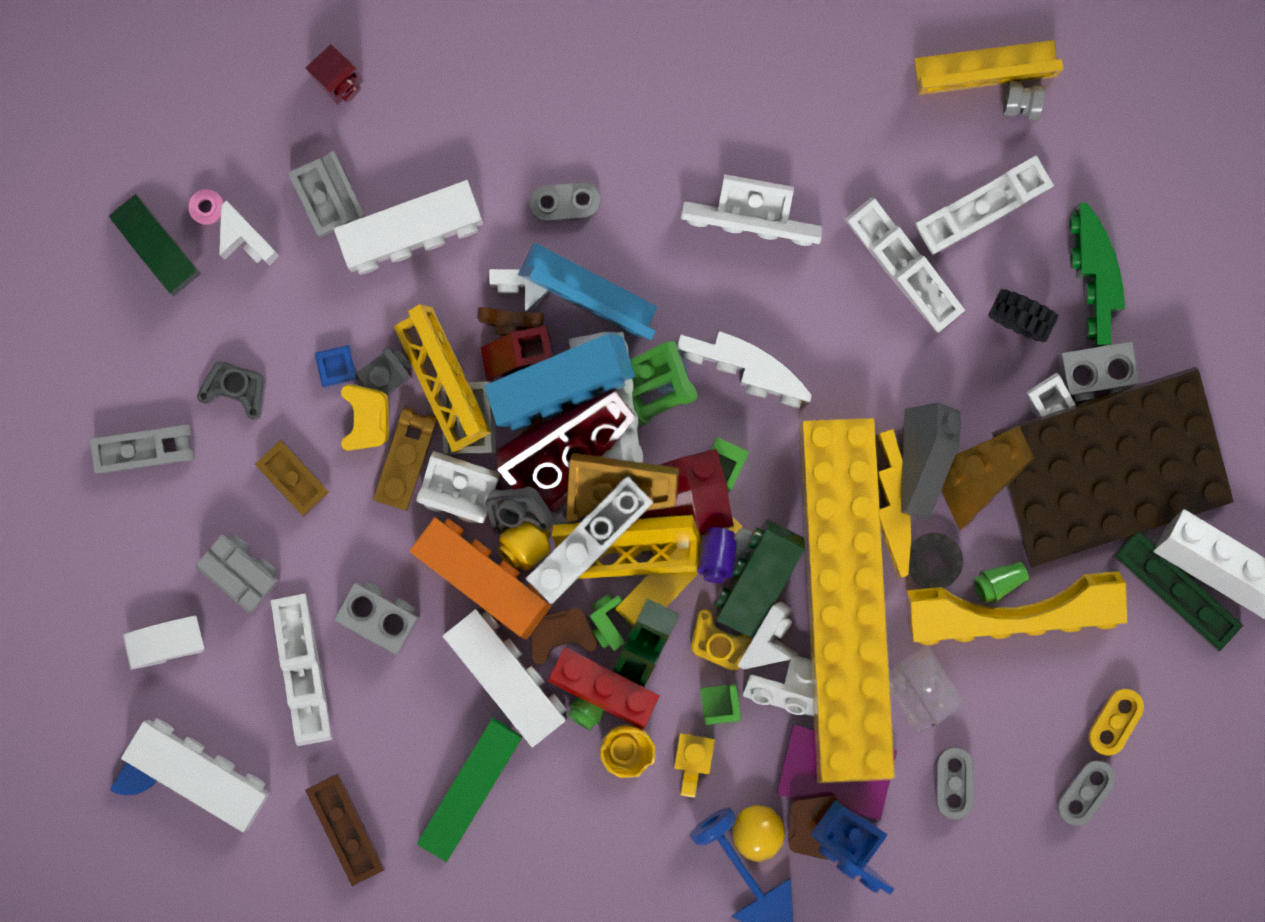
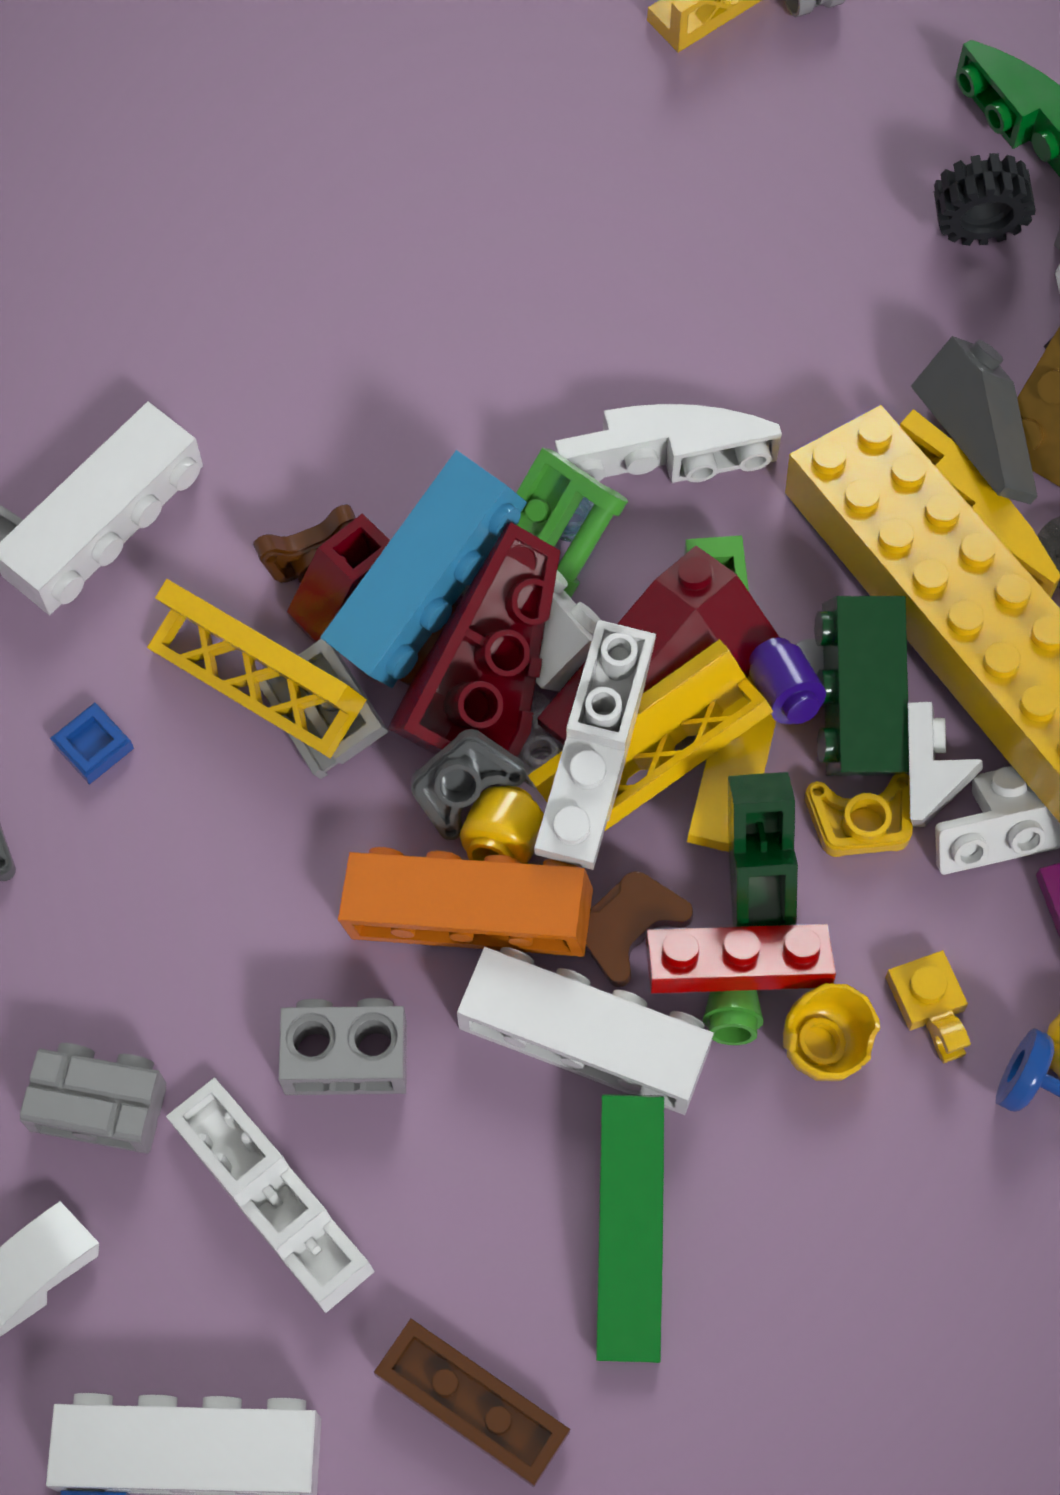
camera: 30 degrees left, 20 degrees down
(292, 478) = (106, 922): pearl gold plate -> none
(370, 417) = (178, 777): yellow piece -> none
(385, 371) = (169, 711): dark grey bracket -> none
(405, 460) = (262, 815): pearl gold plate -> none
(457, 487) = (359, 803): white bracket -> none
(509, 283) = (307, 488): white slope -> none
(565, 202) = (302, 381): light grey plate -> none
(588, 291) = (385, 450): dark azure fence -> none
(597, 477) = (552, 658): pearl gold wing -> none
(606, 631) = (687, 876): bright green bracket -> none
(720, 704) = (921, 894): bright green panel -> none
(753, 208) = (555, 255): white bracket -> none
(904, 264) = (801, 236): white slope -> none
(984, 205) = (849, 115): white slope -> none

